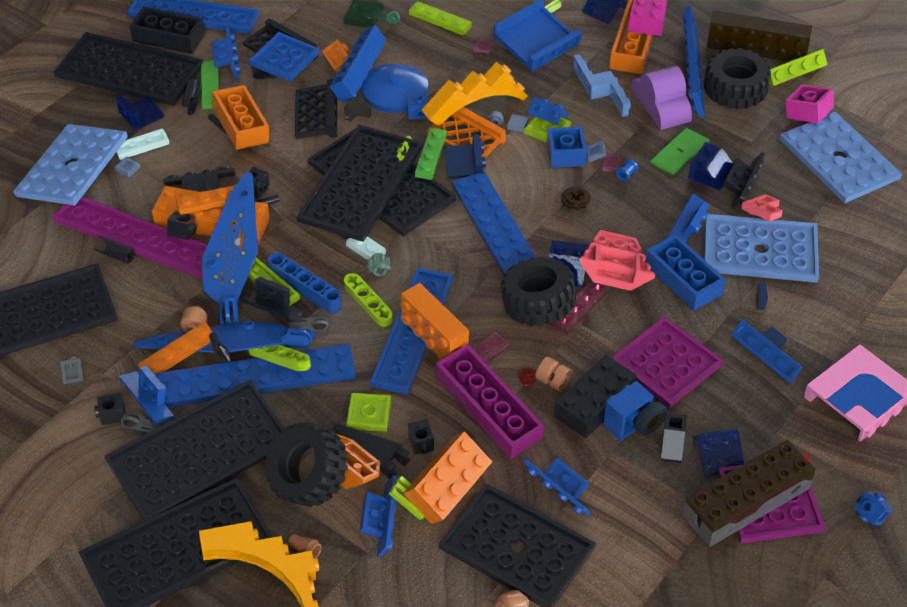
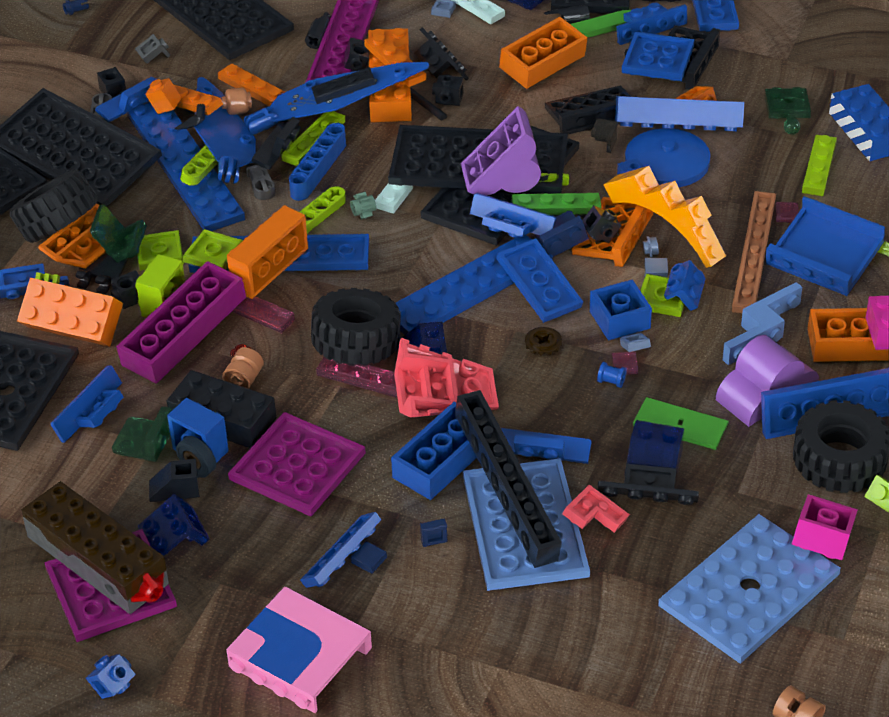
camera: 75 degrees right, 5 degrees down
(166, 310) = (256, 86): none -> orange plate
(173, 364) = (163, 95): none -> orange brick
(233, 237) = (343, 85): none -> black tile
(360, 424) = (116, 239): none -> clear green bracket
(398, 152) = (504, 158): none -> medium lavender brick
(399, 368) = (211, 248): none -> lime tile
(441, 408) = (158, 282): none -> lime brick
(444, 178) = (510, 217): none -> bracket
(476, 122) = (601, 224): none -> black brick
(516, 181) = (539, 280): none -> blue plate
(521, 72) = (754, 251): none -> nougat tile
(610, 451) = (143, 437): none -> clear green bracket
(741, 233) = (508, 479): none -> black brick

